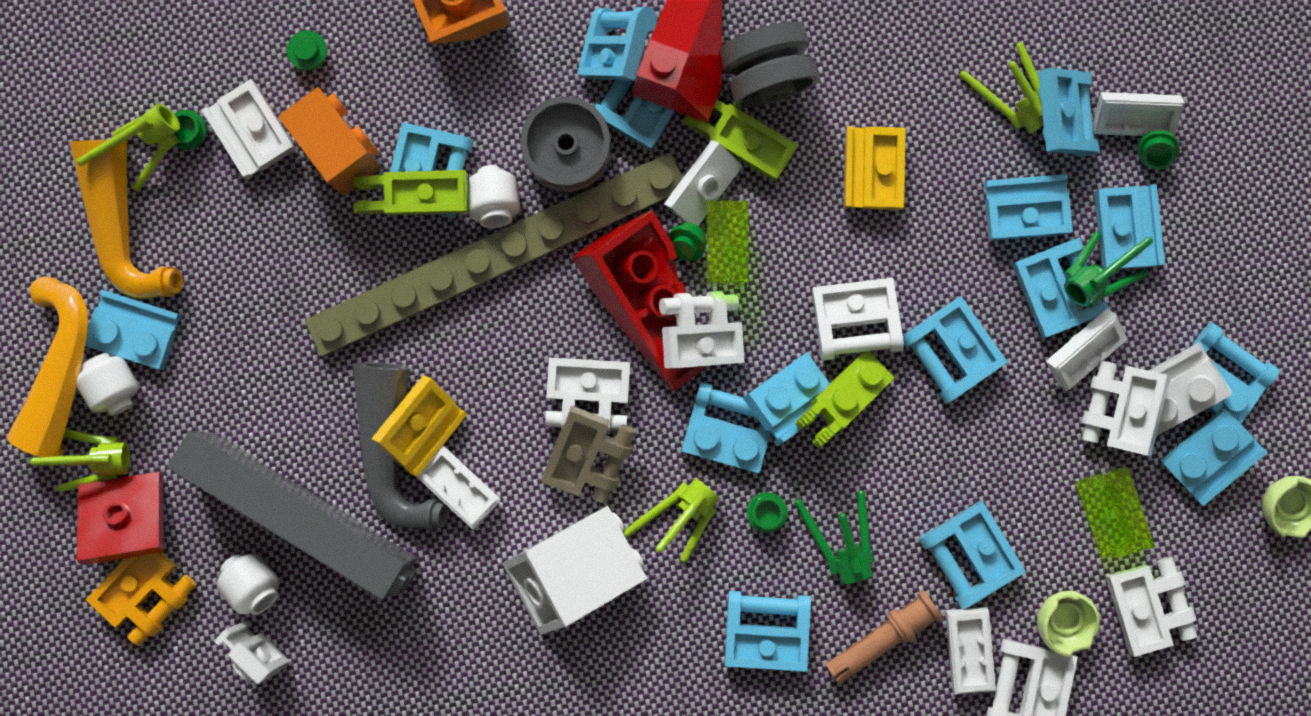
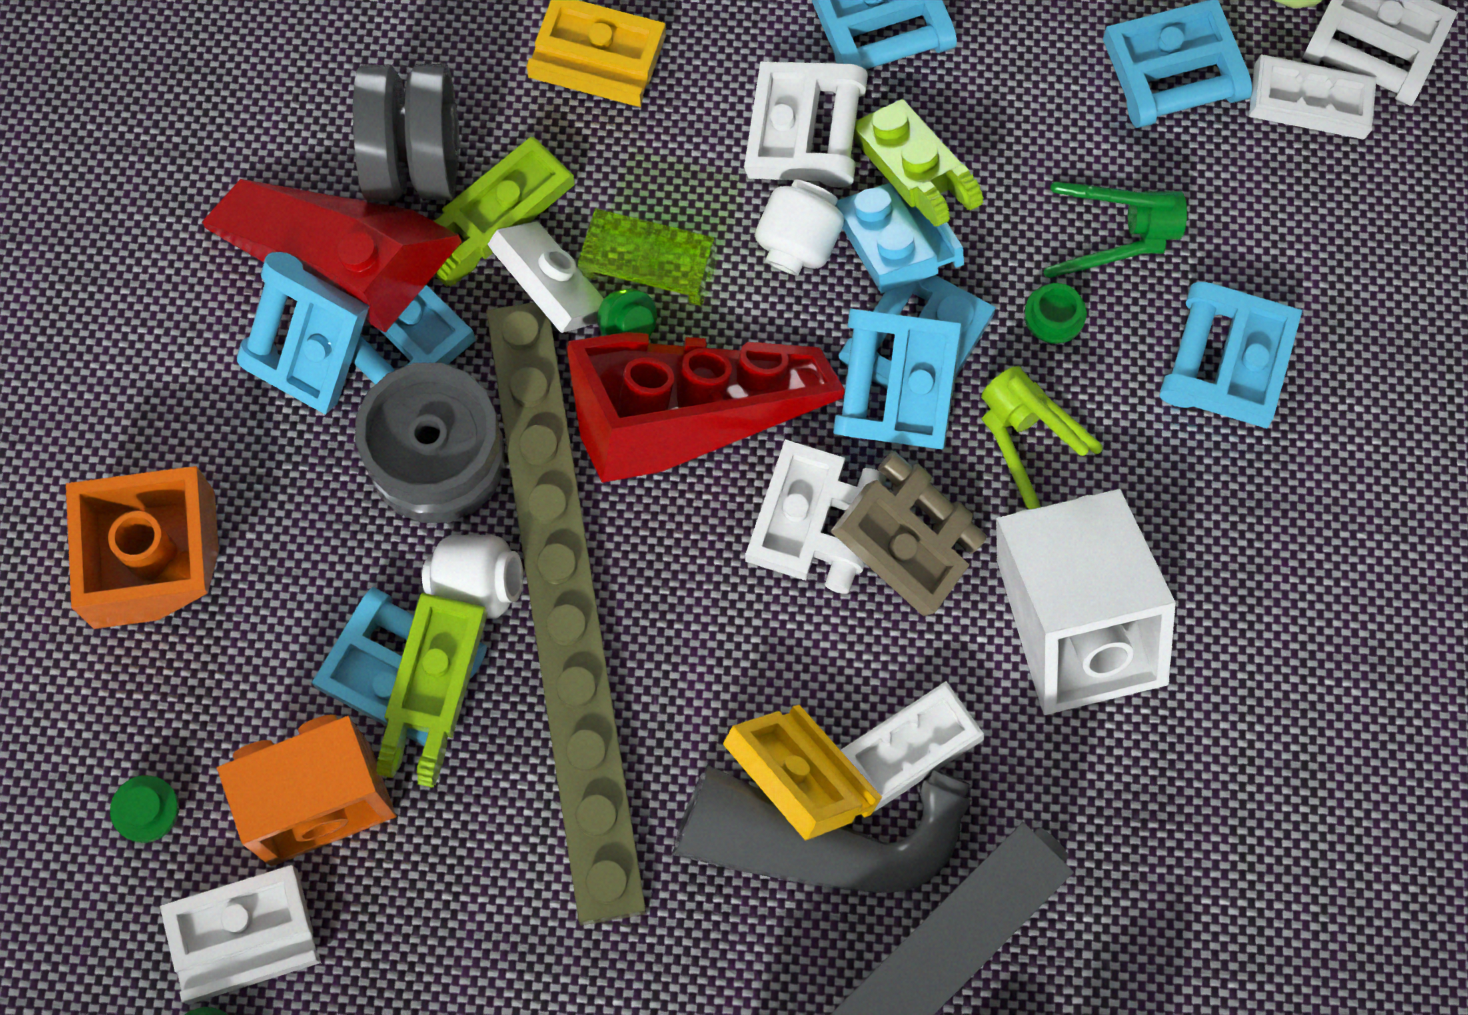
camera: 75 degrees left, 15 degrees down
(690, 435) = (918, 379): none -> medium azure plate
(701, 344) = (786, 329): white plate -> none
(779, 334) = (799, 227): none -> white head
(900, 626) = (1262, 177): nougat pin -> none

